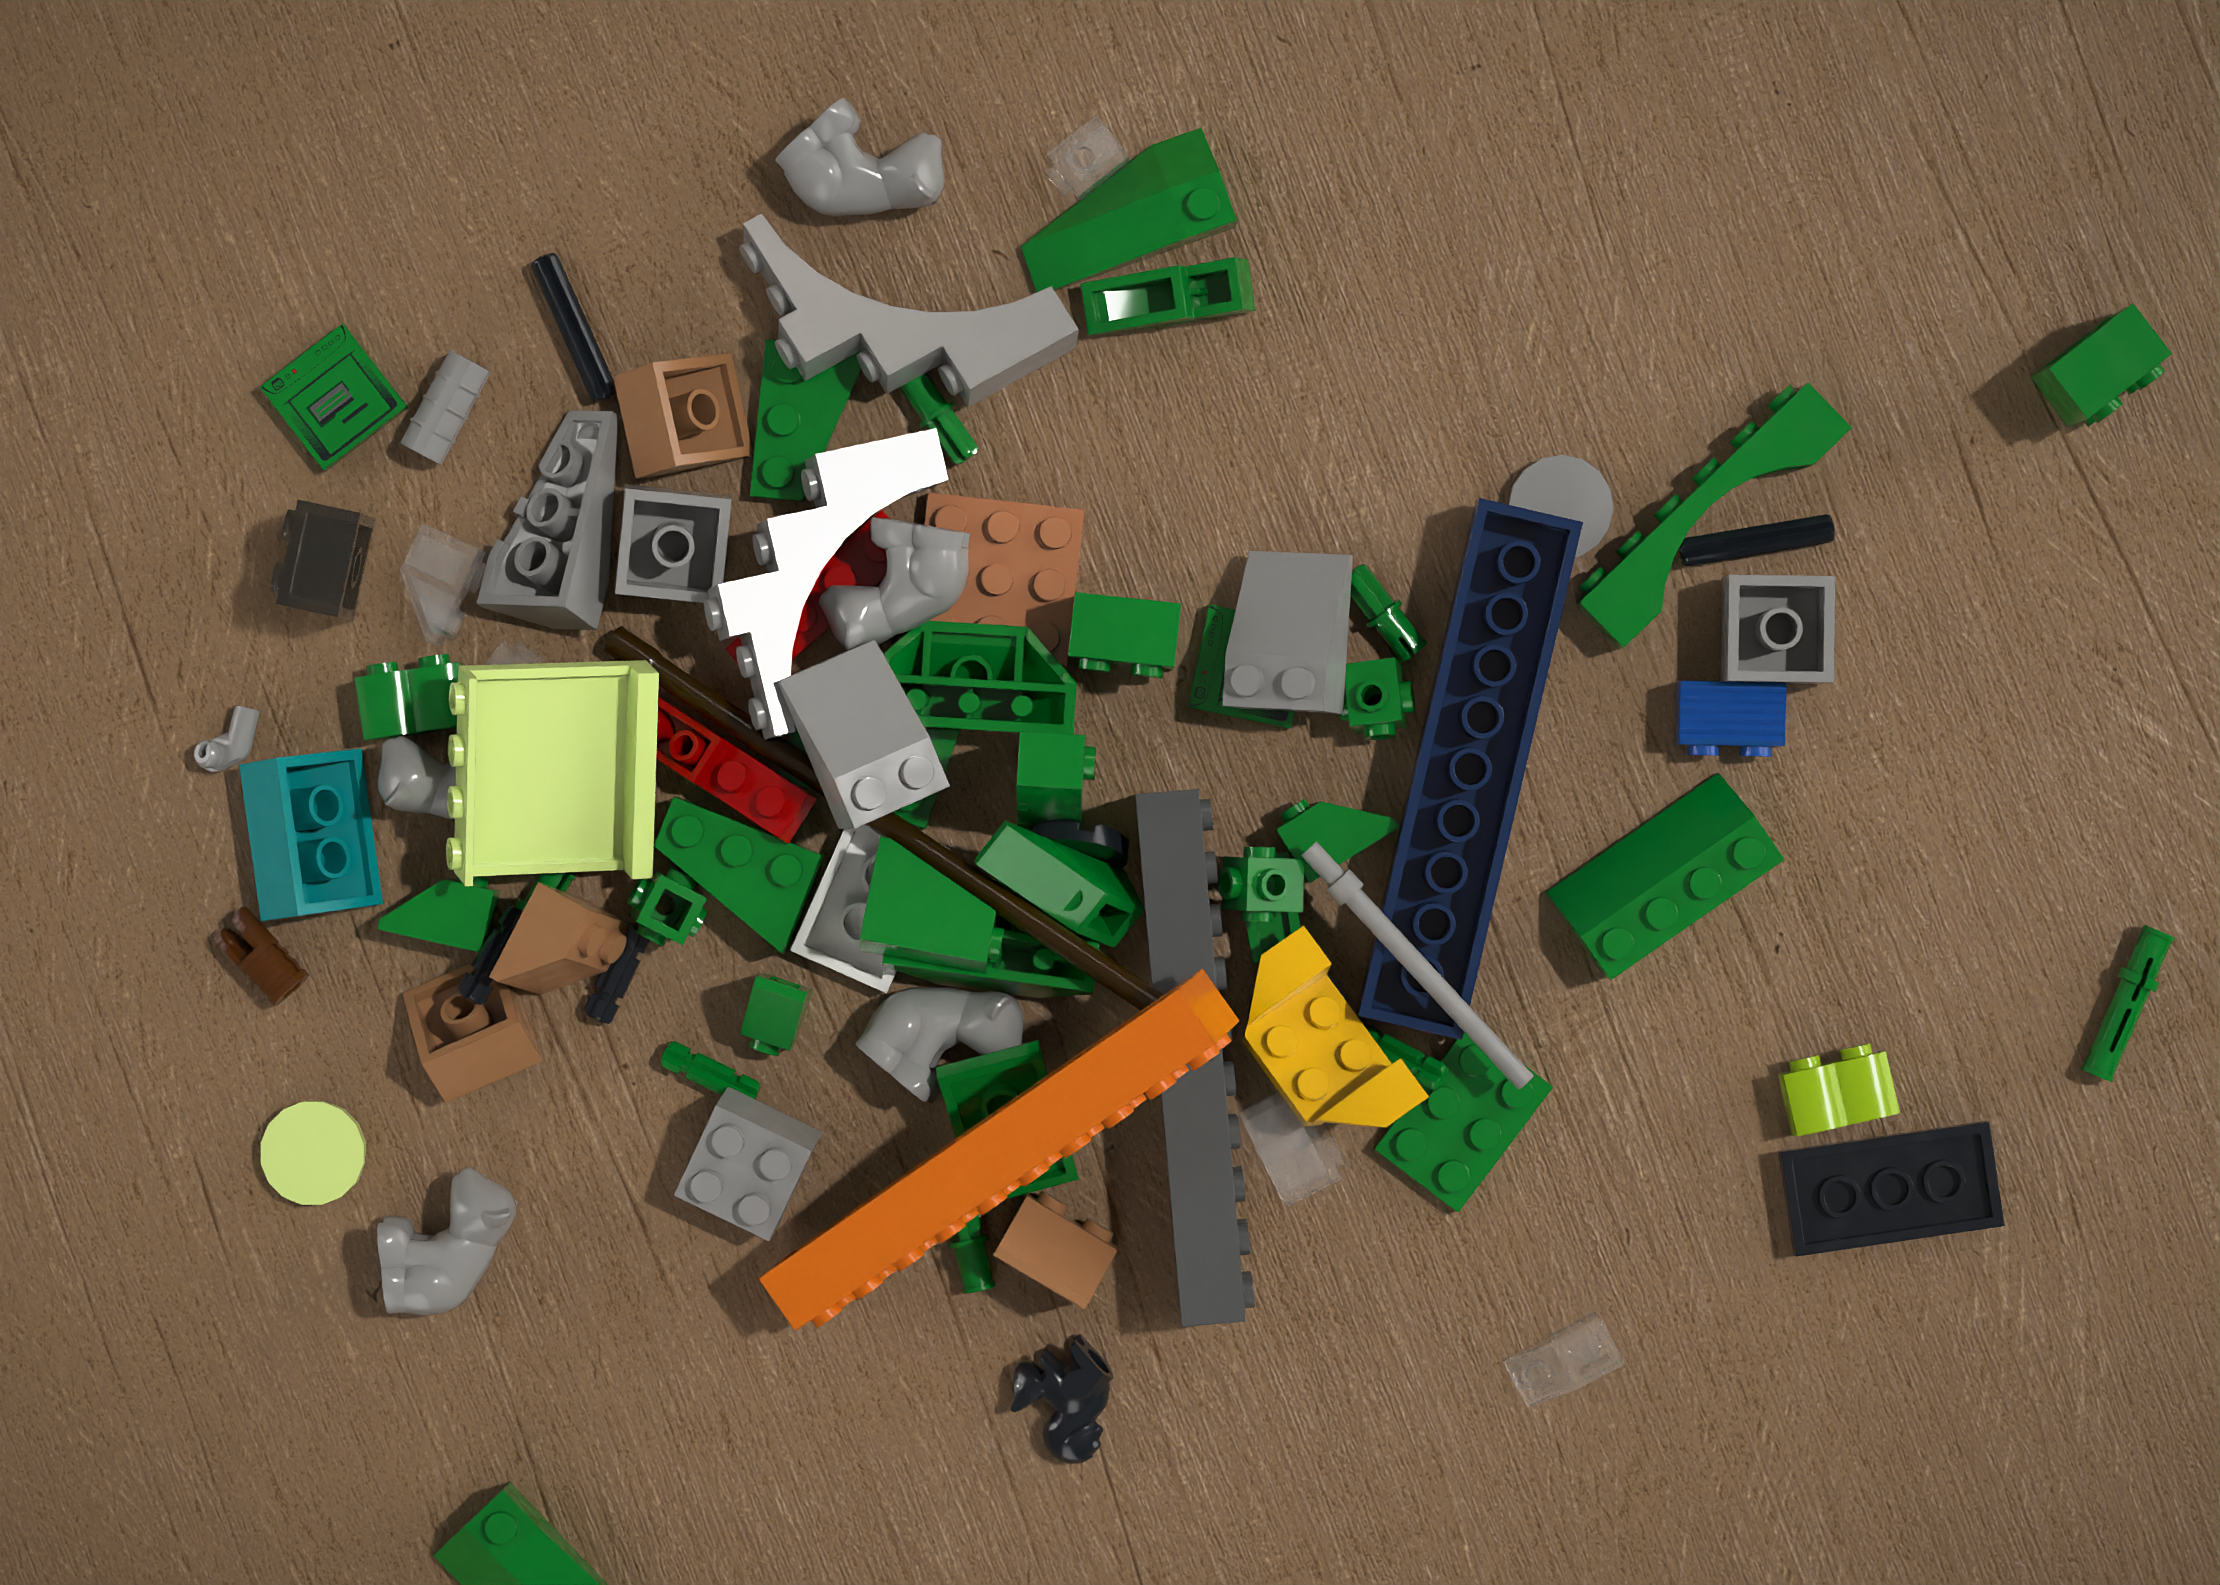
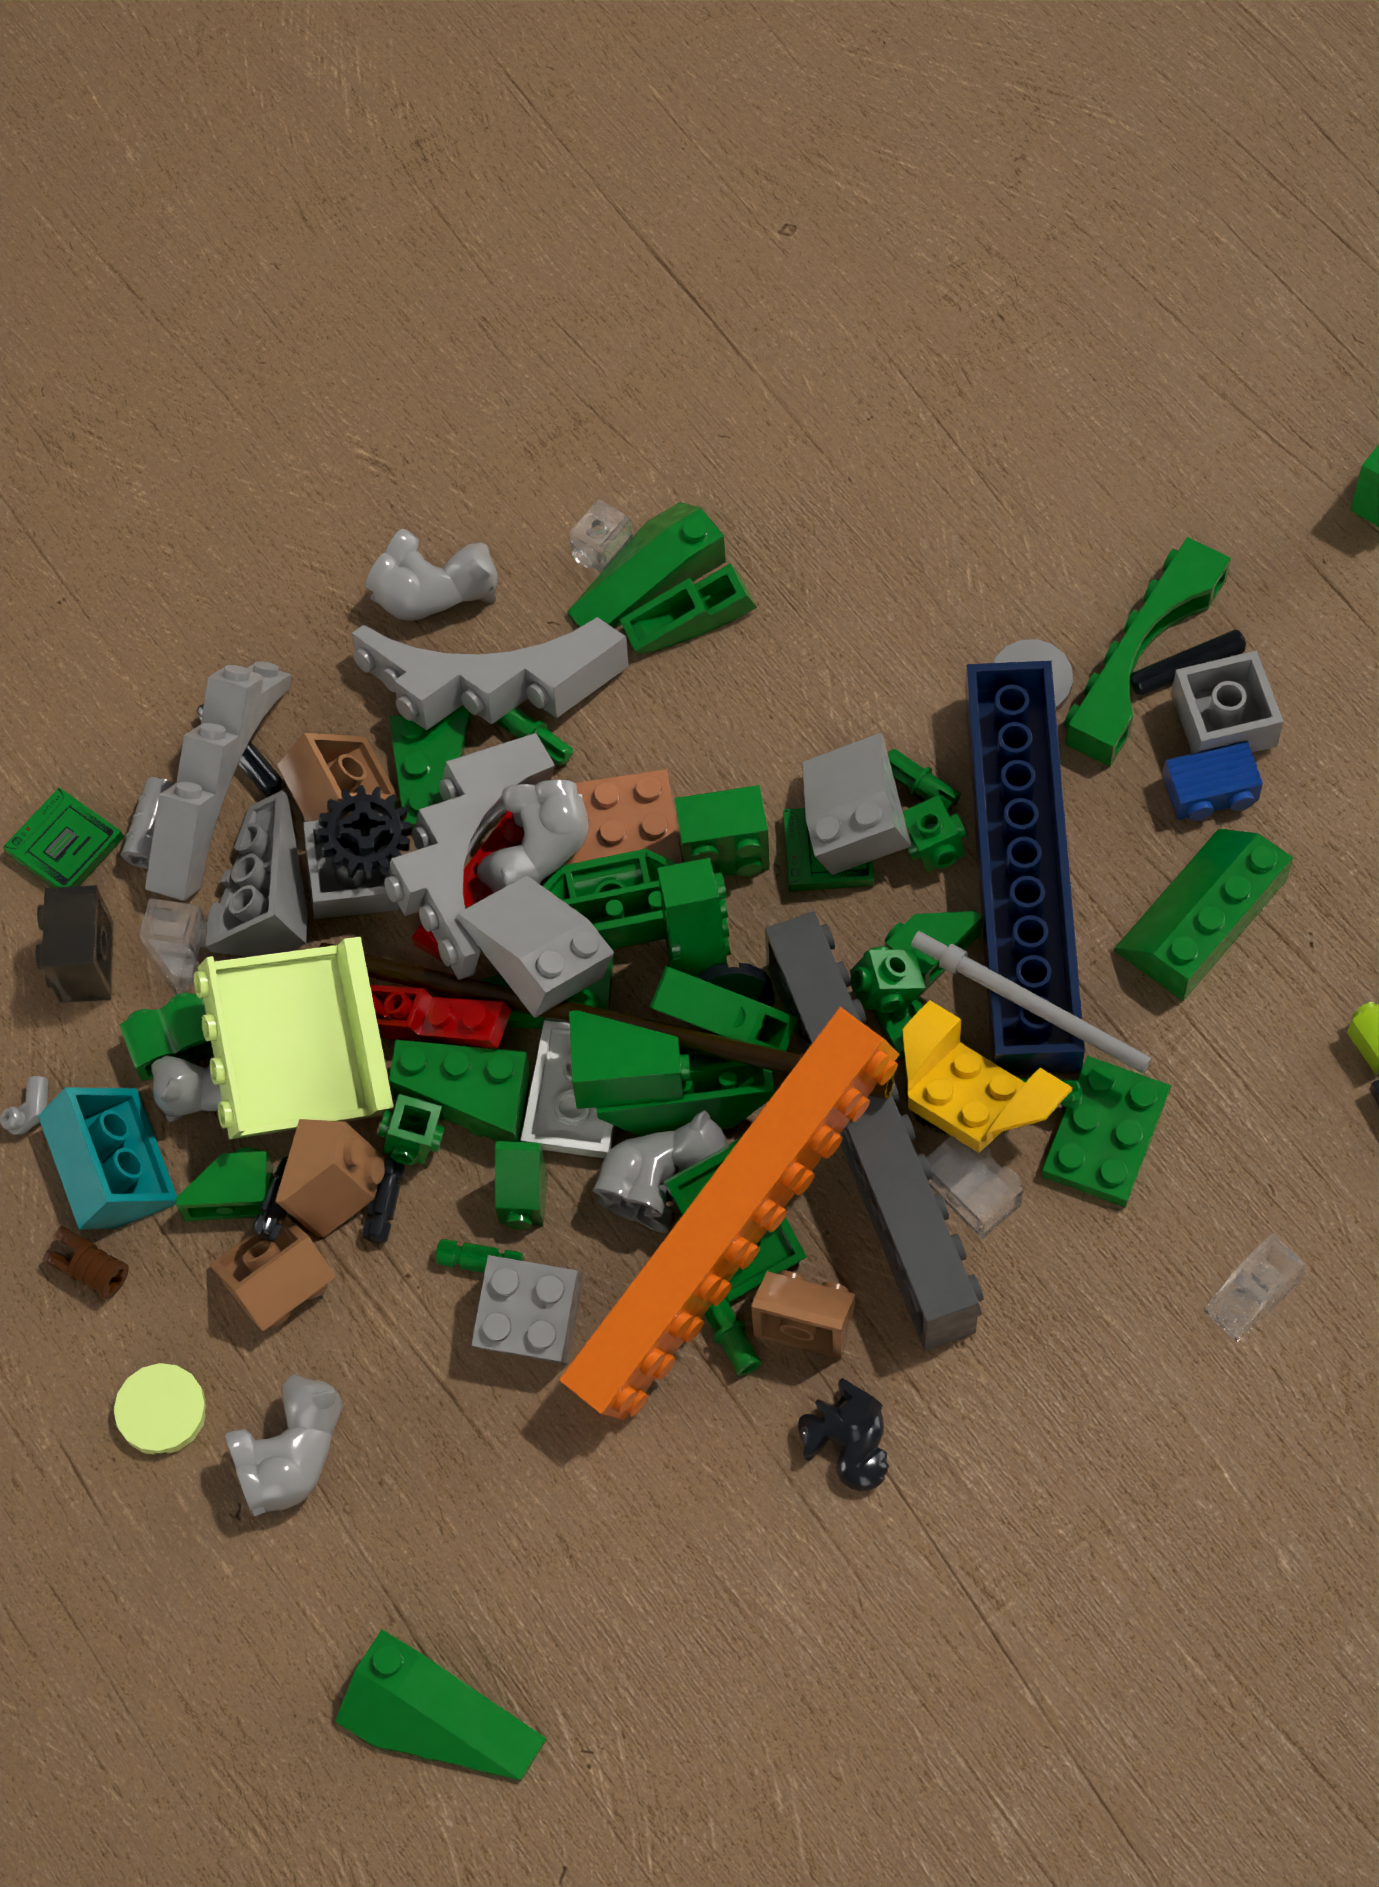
camera: 10 degrees left, 25 degrees down
(532, 367) = (209, 756): none -> light grey arch
(692, 553) = (345, 833): none -> black gear

